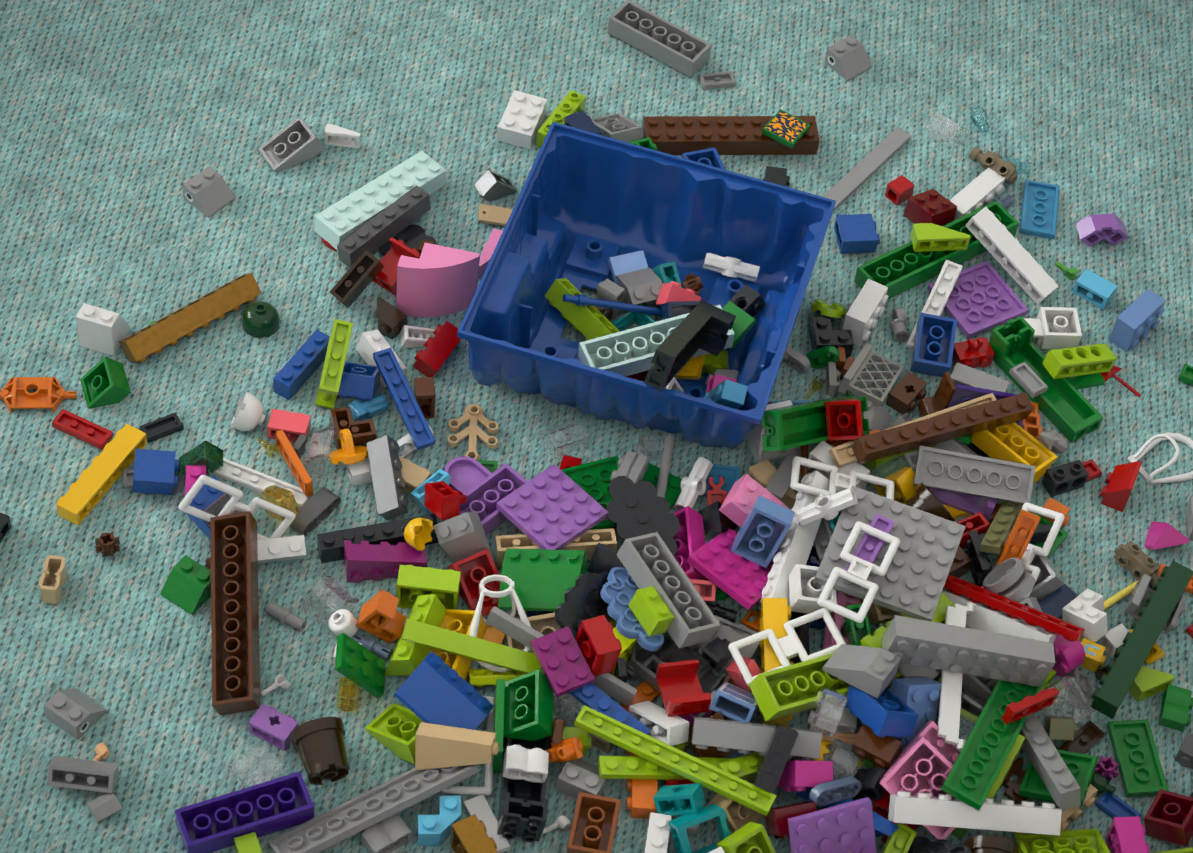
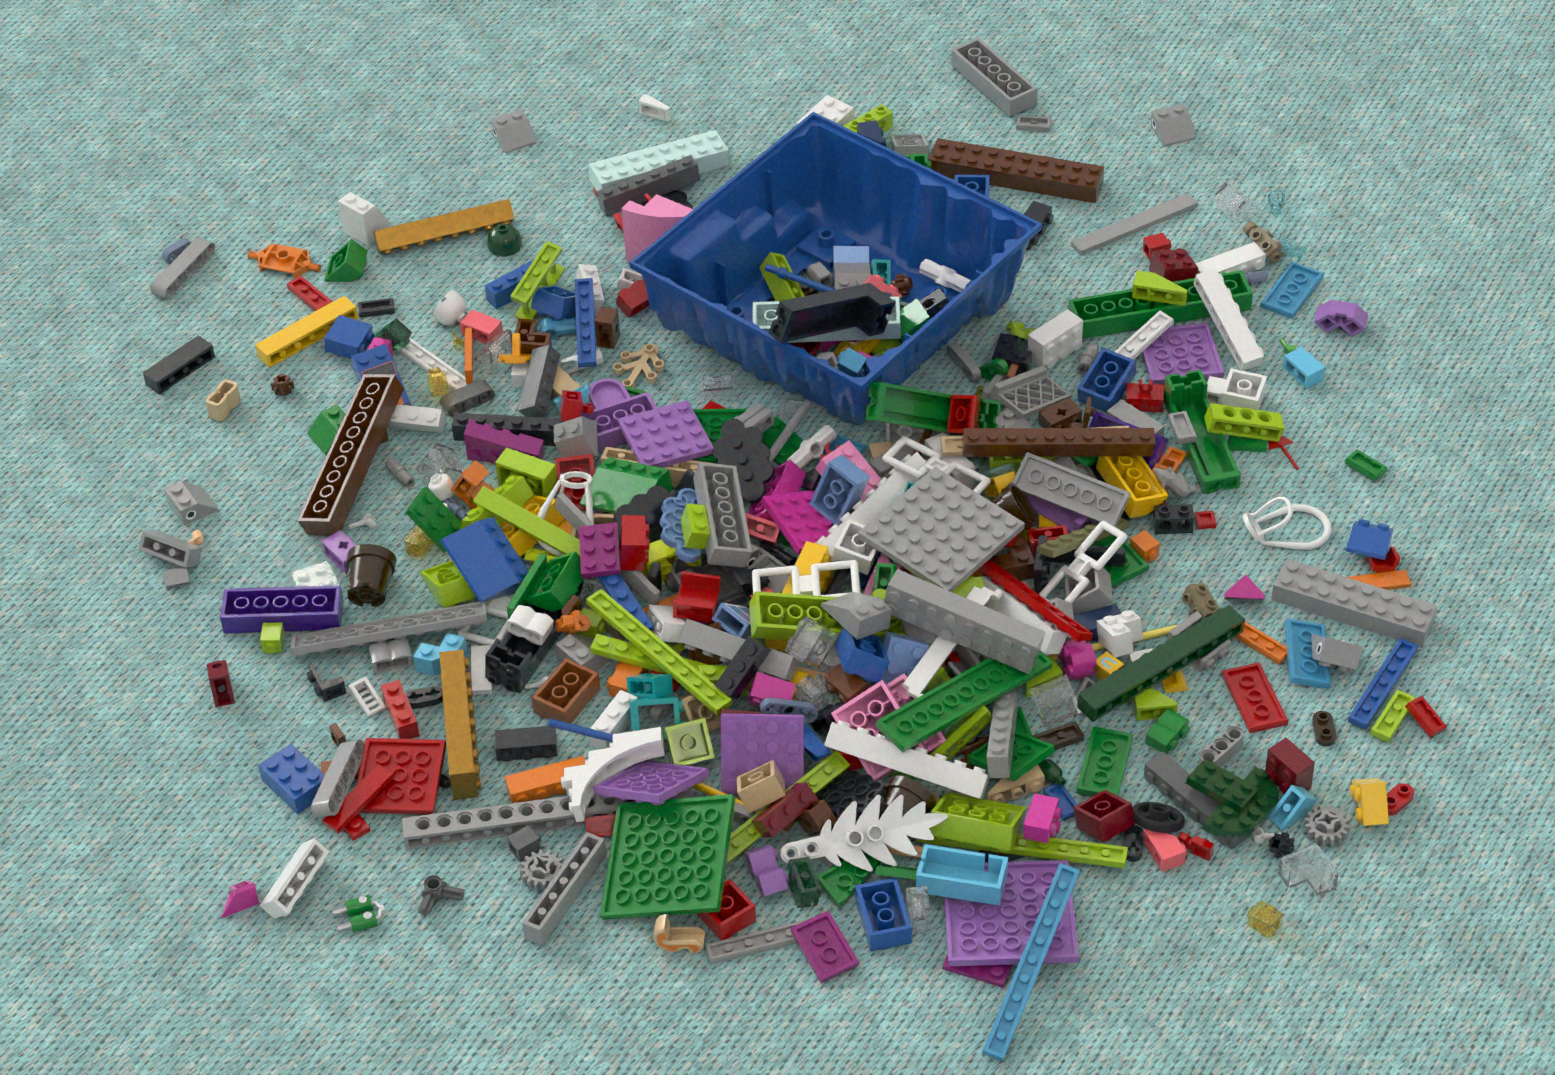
camera: 30 degrees right, 5 degrees down
(234, 506) = (388, 369): white bar -> none
(291, 146) = (607, 107): light grey slope -> none
(299, 445) = (480, 343): dark grey tile -> none
(357, 279) = (598, 221): dark brown brick -> none
(389, 319) = (614, 261): dark brown slope -> none
(418, 533) = (538, 428): yellow hair -> none
(452, 746) = (470, 593): tan slope -> none
(786, 128) = (1065, 171): tile -> none
(826, 506) = (900, 478): white piece -> none
(856, 233) = (1090, 274): blue brick -> none
(858, 572) = (892, 531): white bar -> none
(870, 545) = (915, 518): medium lavender plate -> none
(1010, 580) = (1050, 582): light grey wheel -> none
(1019, 536) = (1069, 555): orange tile -> none
(1030, 705) = (1003, 682): red plate -> none
(1060, 727) = (1038, 717): olive brick -> none
(1107, 767) = (1068, 763): magenta gear -> none
(1120, 485) = (1225, 537): red slope -> none
(1137, 320) = (1326, 400): medium blue brick -> none

